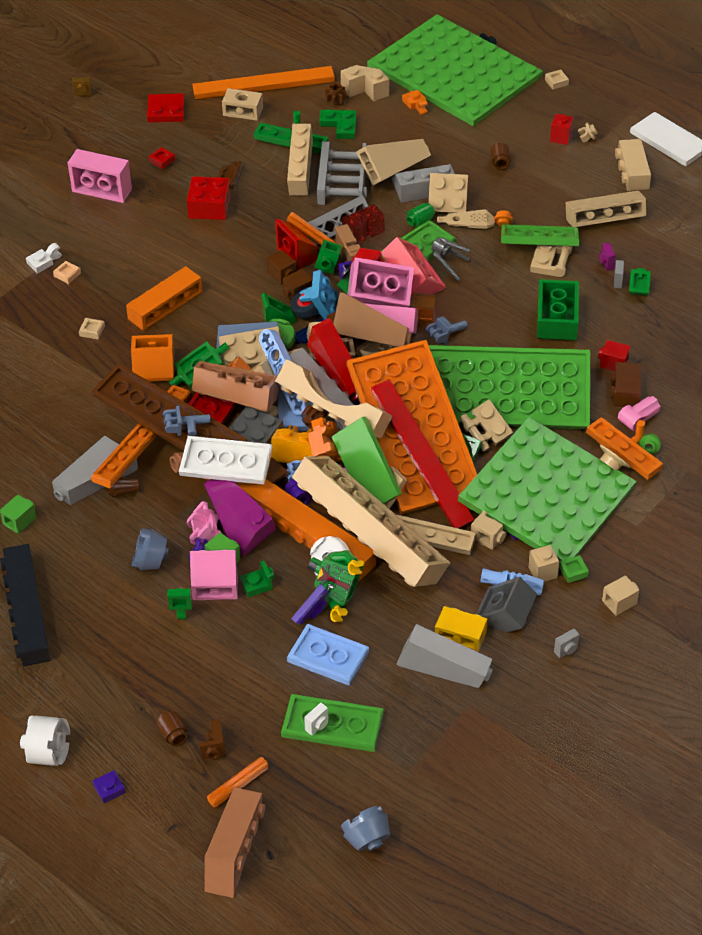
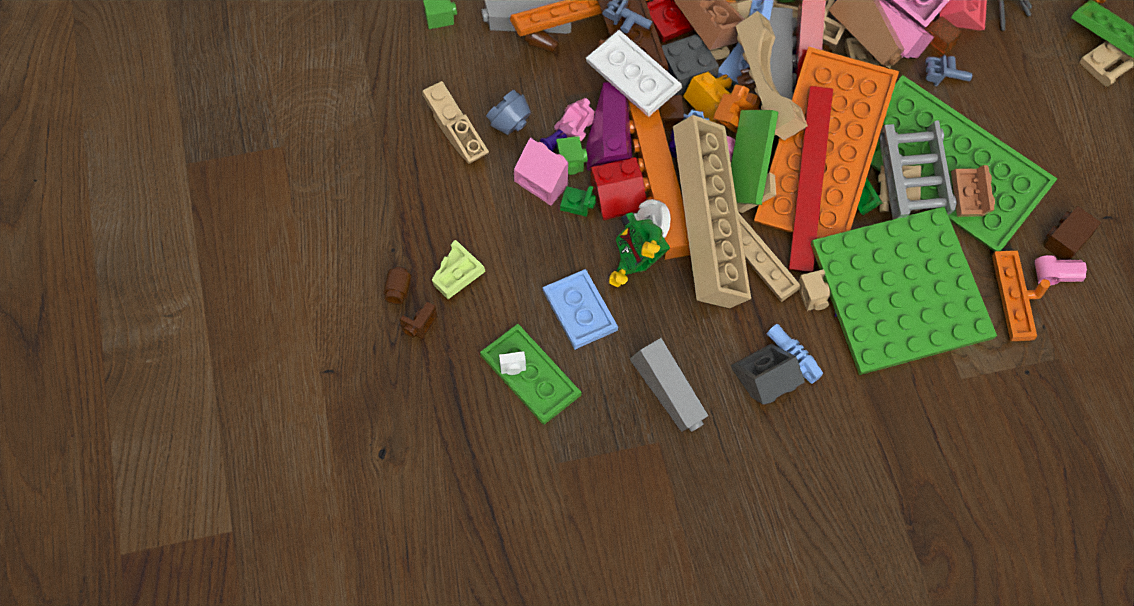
camera: 35 degrees right, 15 degrees up
(26, 606) = (377, 96): black brick -> none
(45, 740) = (289, 226): white brick -> none
(108, 786) = (309, 300): dark purple plate -> none
(109, 588) = (454, 123): none -> tan slope
(180, 600) = (493, 175): green plate -> none
(209, 687) = (457, 271): none -> yellowish green wing
(232, 842) = (356, 420): nougat wedge -> none
(238, 781) = (409, 370): orange axle -> none
(282, 551) = (618, 188): none -> red slope
(312, 606) = (601, 256): dark purple tile -> none
(367, 829) = (468, 494): sand blue cone -> none
(462, 627) = (710, 366): yellow brick -> none
(477, 415) = (898, 183): none -> light grey fence
(541, 393) = (973, 191): none -> nougat bracket
(544, 563) = (836, 357): tan brick -> none
(558, 309) = (1068, 117): green brick -> none
(566, 643) = (791, 448): light grey plate -> none
(573, 569) = (862, 380): bright green plate -> none
(612, 459) = (991, 299): tan piece -> none
(613, 353) = (1086, 196): red brick -> none
(620, 595) = (882, 437): tan brick -> none
(650, 439) = (1043, 307): bright green plate -> none

